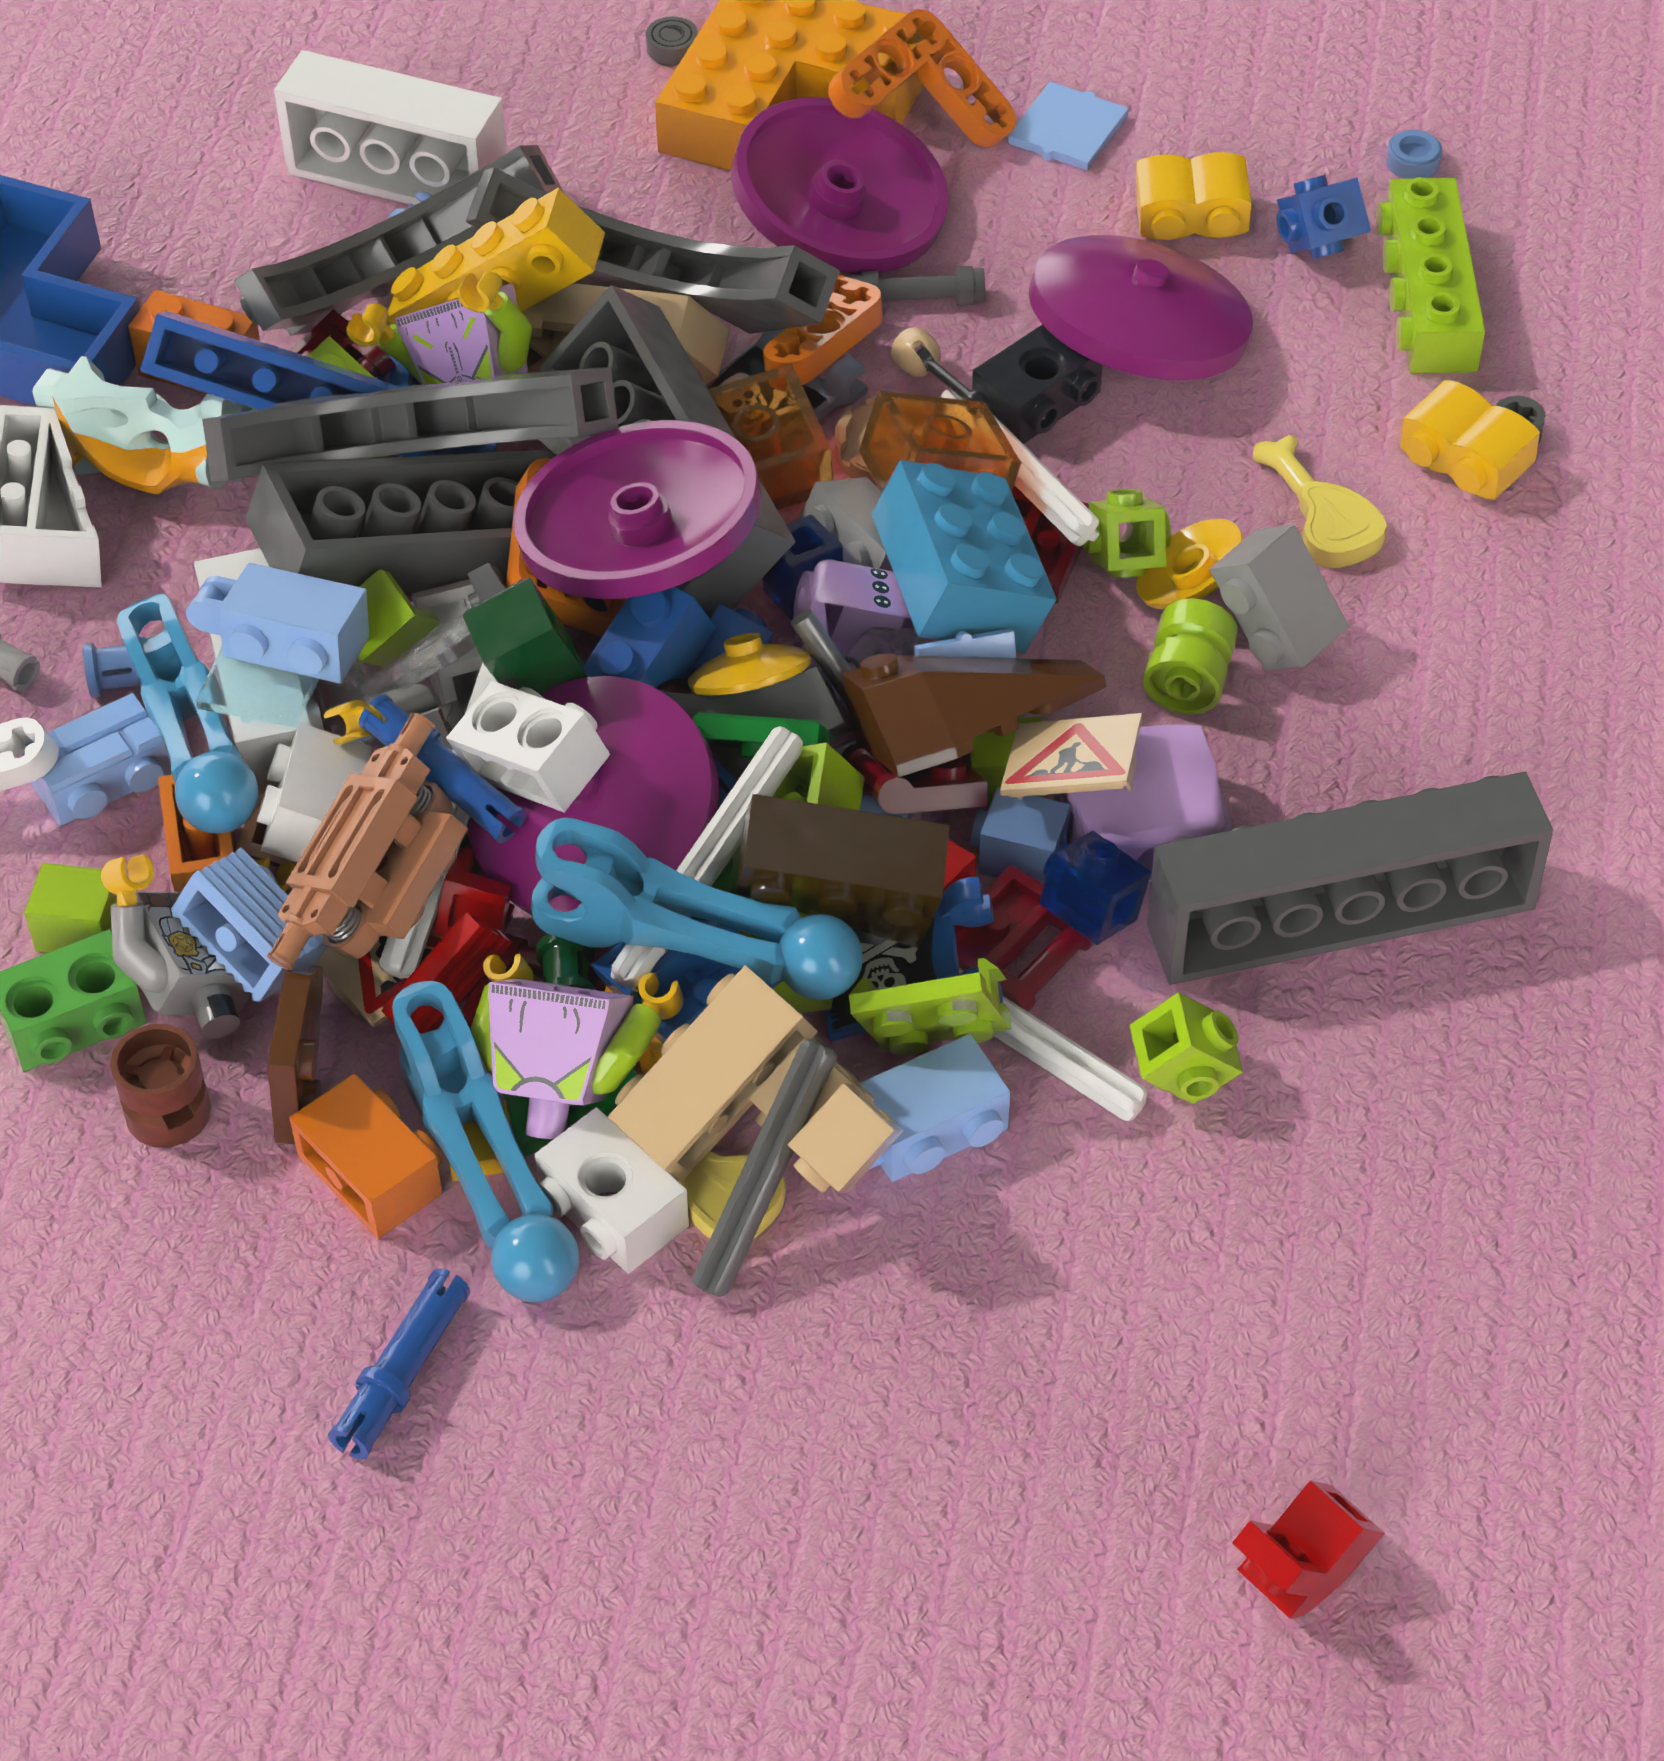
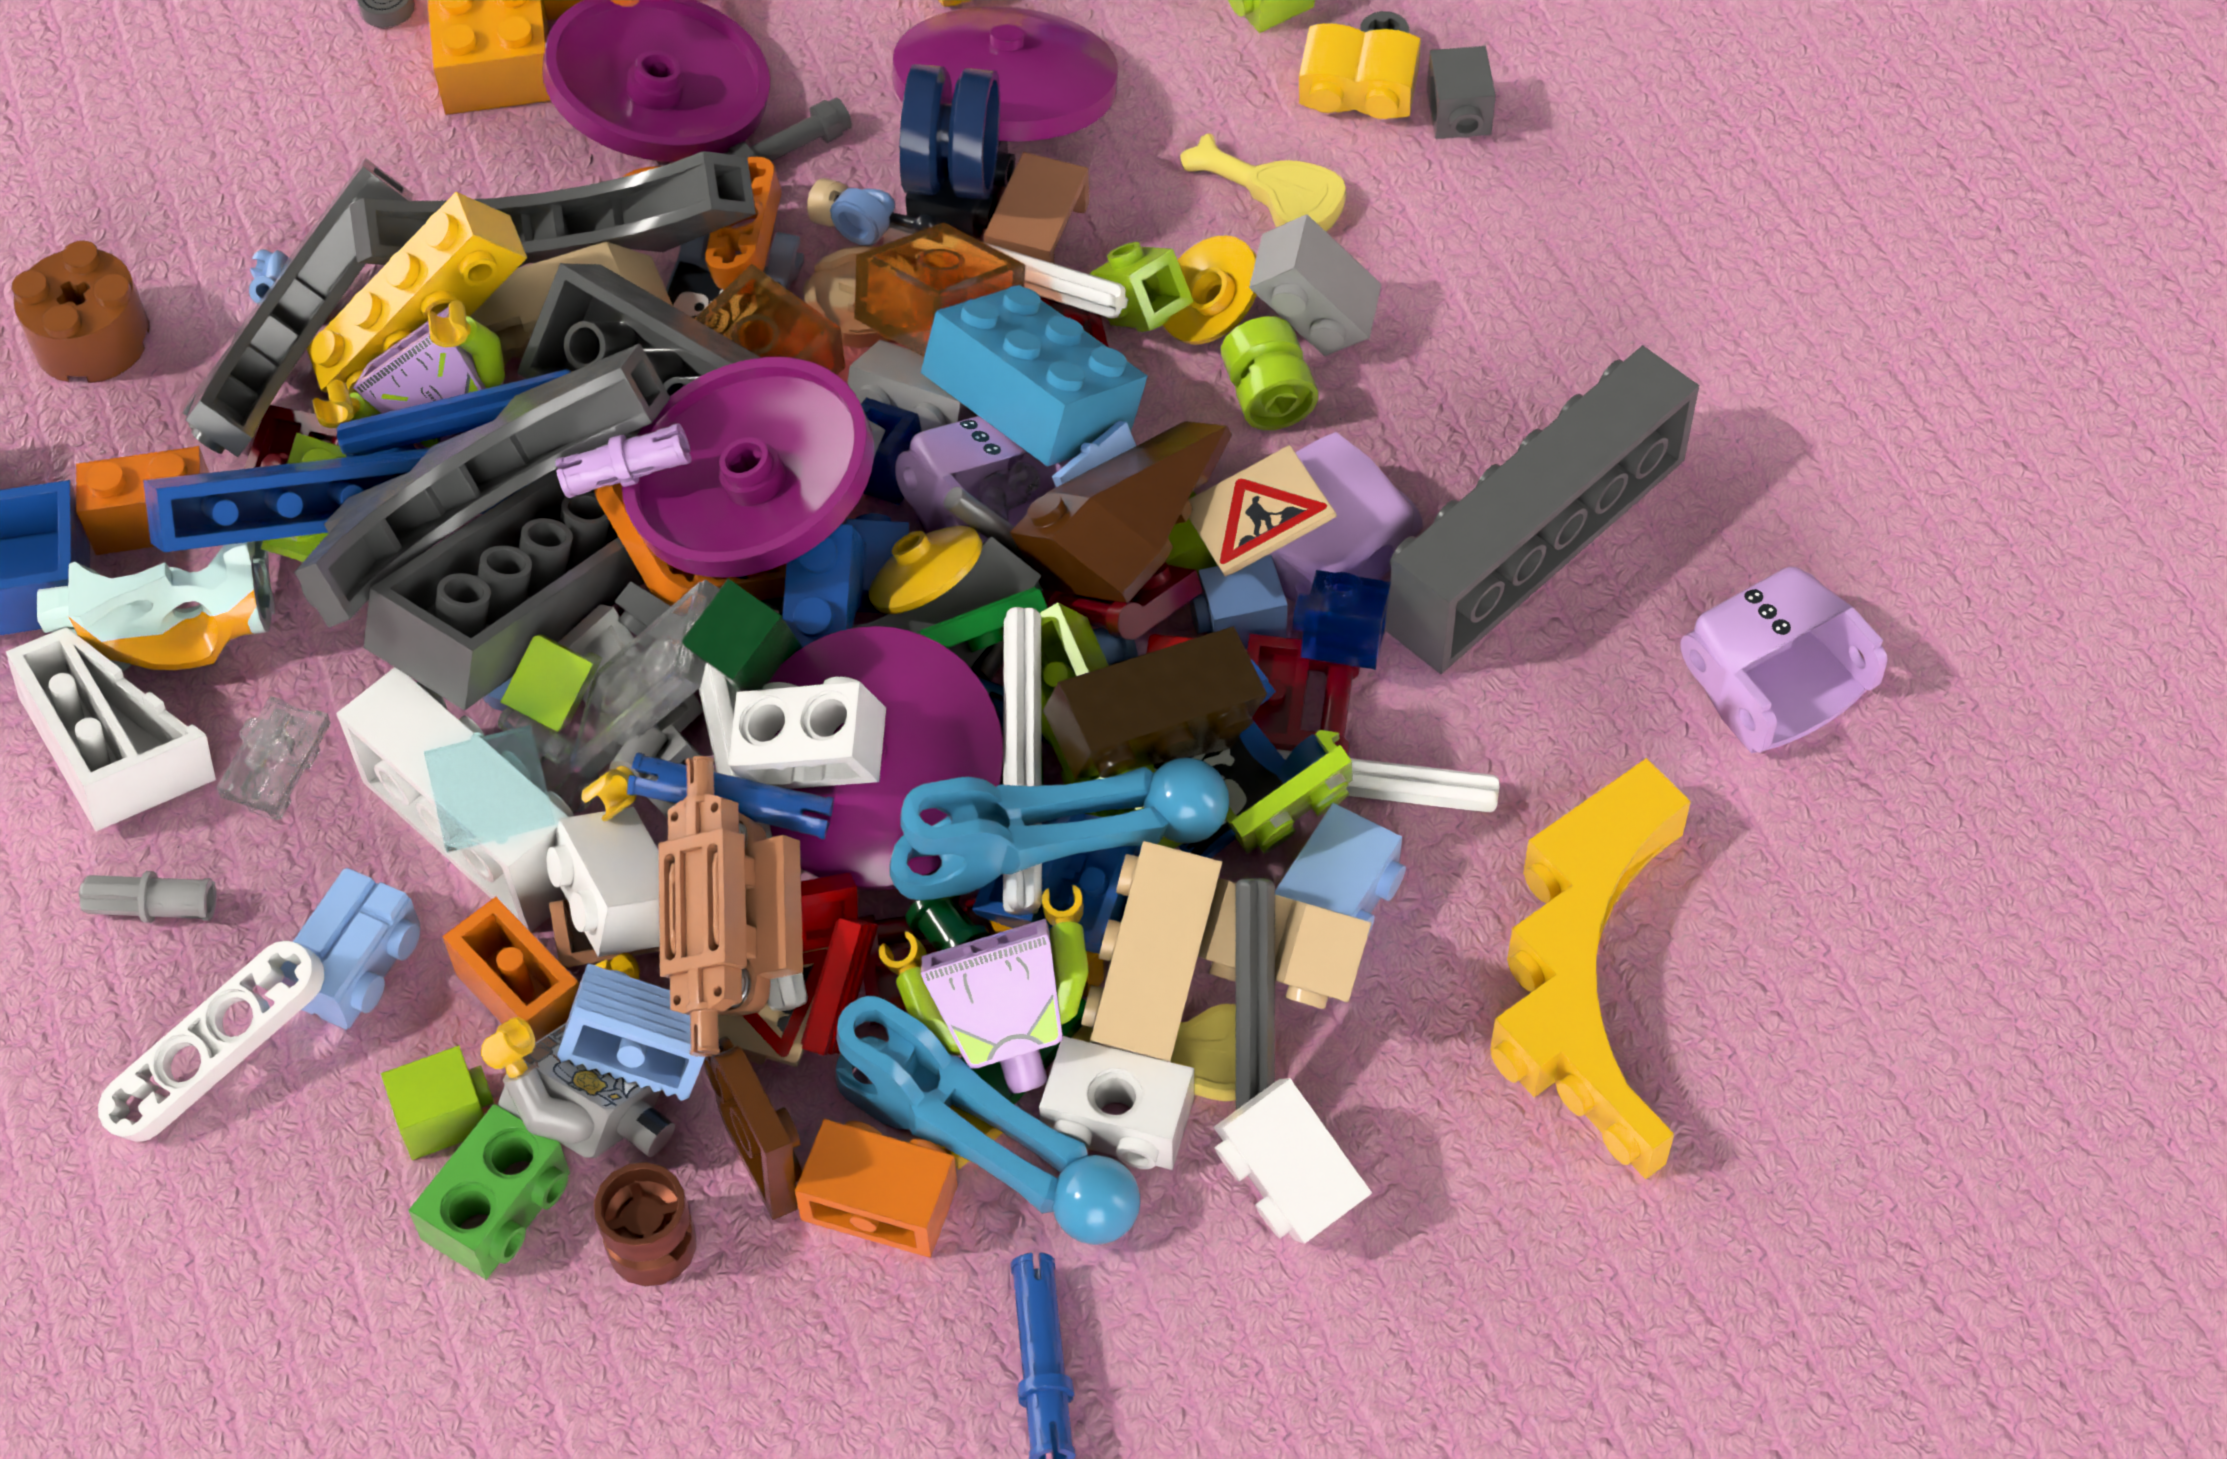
camera: 30 degrees left, 5 degrees up
(108, 668) = (299, 848): medium blue bush -> none
(147, 572) = (273, 757): none -> clear hips
(217, 787) = (524, 918): dark azure piece -> none
(251, 181) = (81, 313): none -> dark orange brick
(284, 620) = (480, 729): light blue brick -> none
(383, 128) = (196, 203): white brick -> none
(423, 368) = (431, 418): none -> blue axle
(539, 458) = (623, 460): none -> lavender pin
(709, 1307) = (1290, 1162): none -> white brick
(925, 368) = (862, 214): none -> medium blue tile
(1030, 323) = (949, 131): none -> dark blue wheel
(1085, 428) = (1038, 206): none -> nougat panel
(1159, 1210) = (1558, 1029): none -> yellow arch
(1186, 1048) = (1514, 723): lime brick -> none
(1306, 1549) = (1902, 1101): red brick -> none
(1485, 1116) = (1783, 658): none -> lavender piece
(1550, 497) = (1460, 92): none -> dark grey brick

